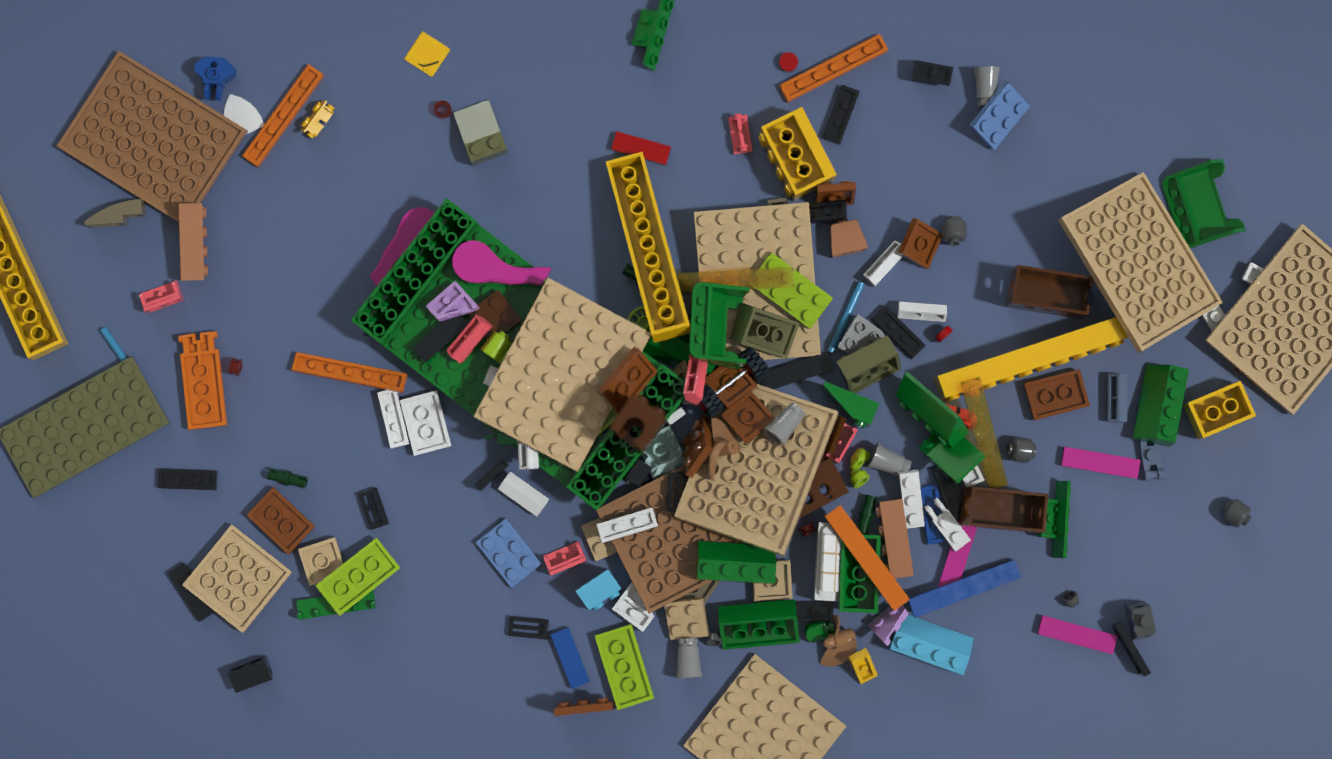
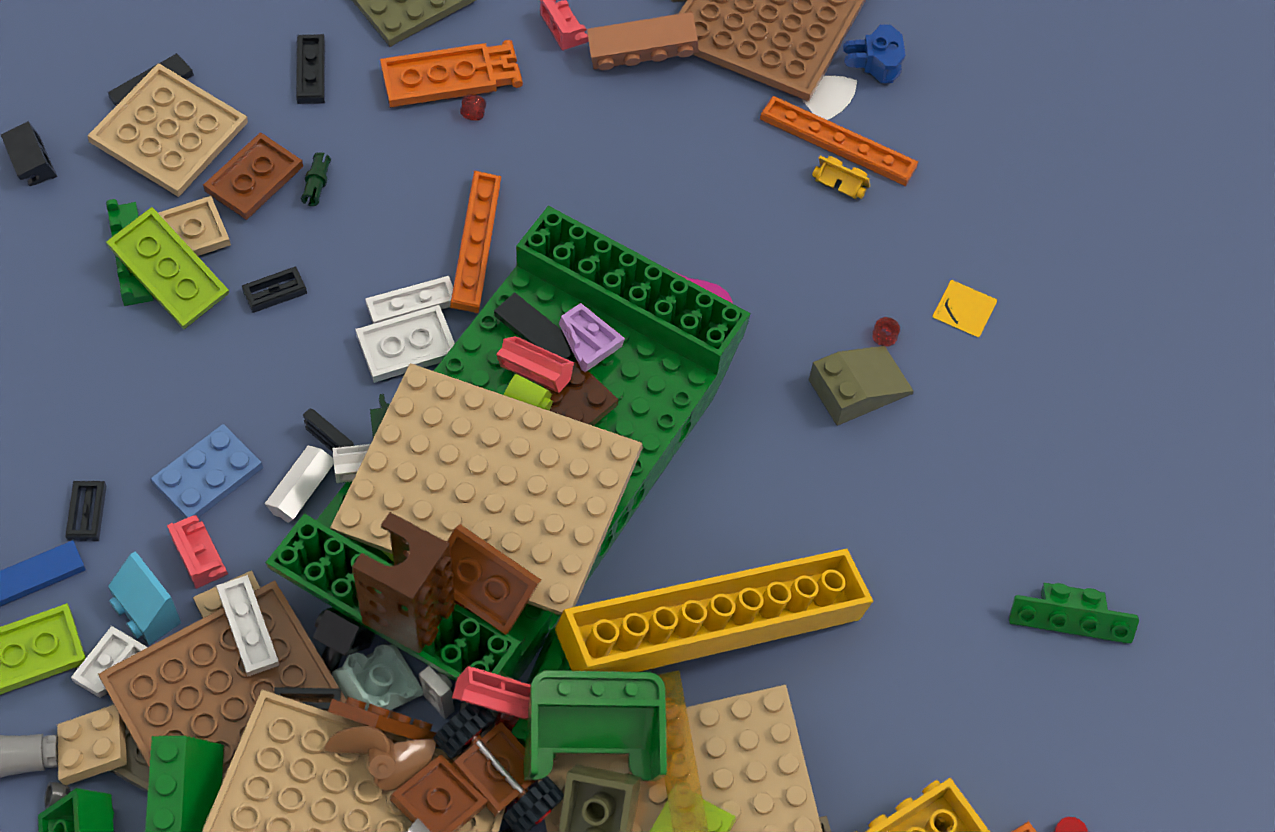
camera: 80 degrees right, 25 degrees down
(479, 265) = (653, 370): dark pink animal -> none
(651, 150) = (878, 620): red tile -> none
(740, 134) = (932, 764): coral hinge -> none

